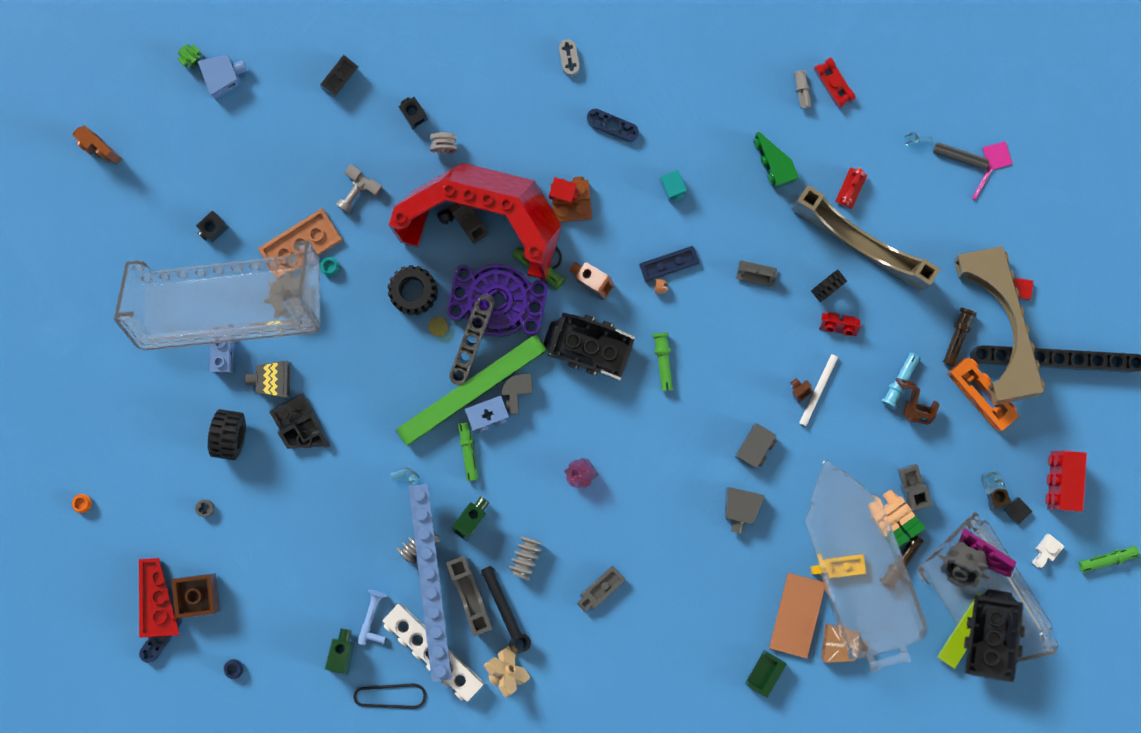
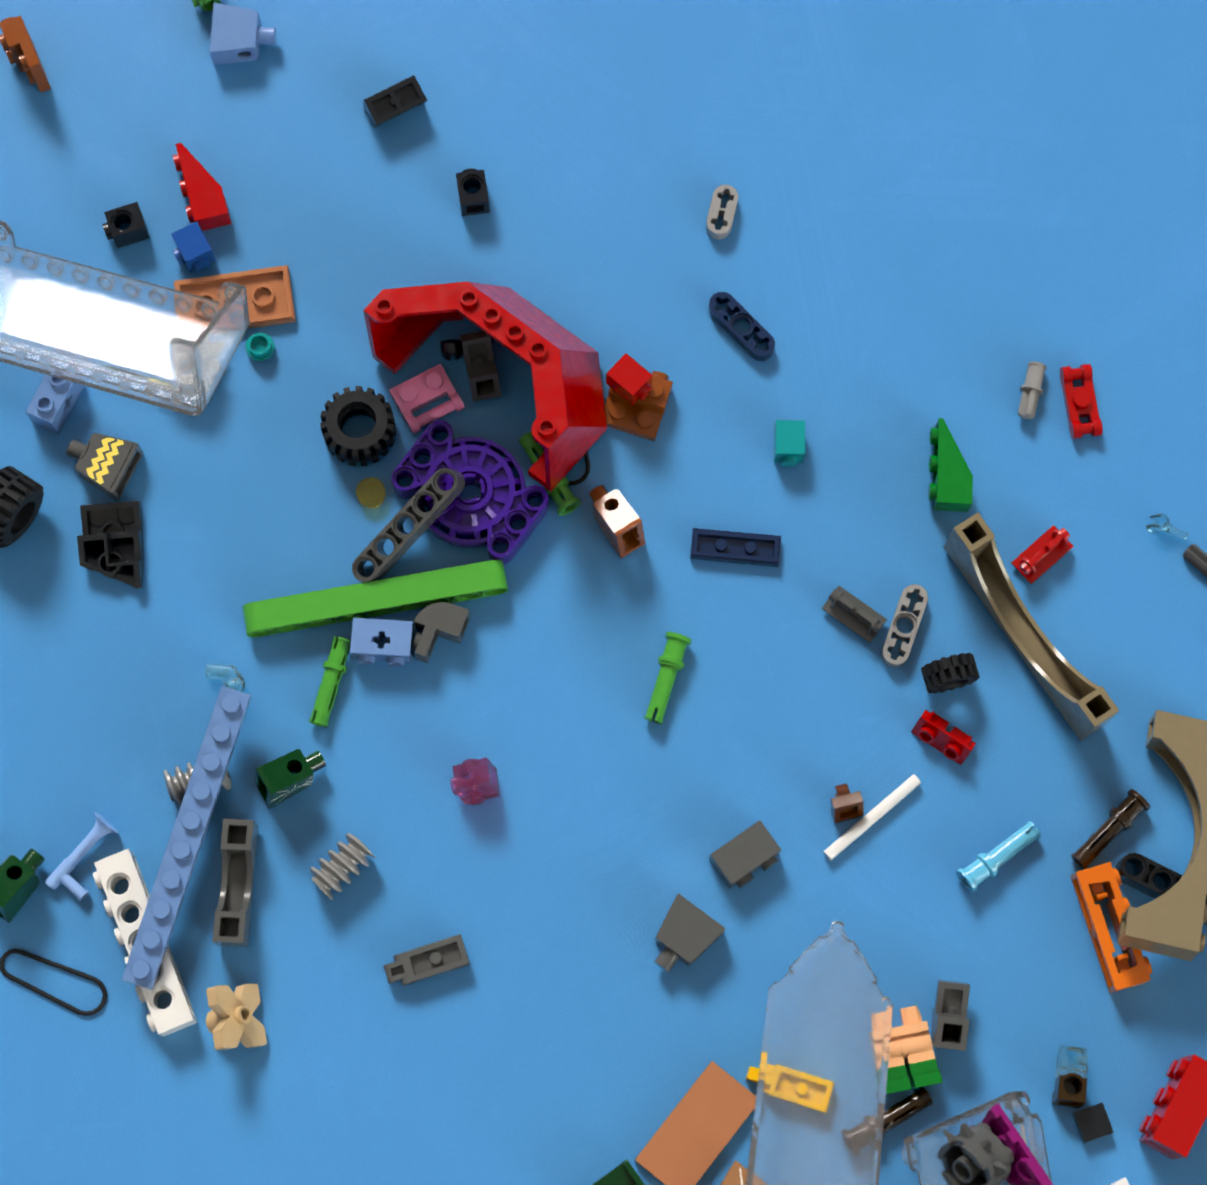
camera: 20 degrees right, 10 degrees down
(252, 187) = (205, 195): none -> red slope
(259, 223) = (192, 248): none -> blue brick
(360, 183) = (356, 255): light grey bar -> none
(440, 250) = (423, 391): none -> bright pink plate
(443, 143) = (495, 248): light grey wheel -> none
(505, 611) = (275, 938): black piece -> none
(589, 345) = (573, 607): black slope -> none
(660, 286) = (709, 573): nougat hinge -> none
(794, 281) = (918, 609): none -> light grey beam
(914, 412) = (999, 907): reddish brown piece -> none

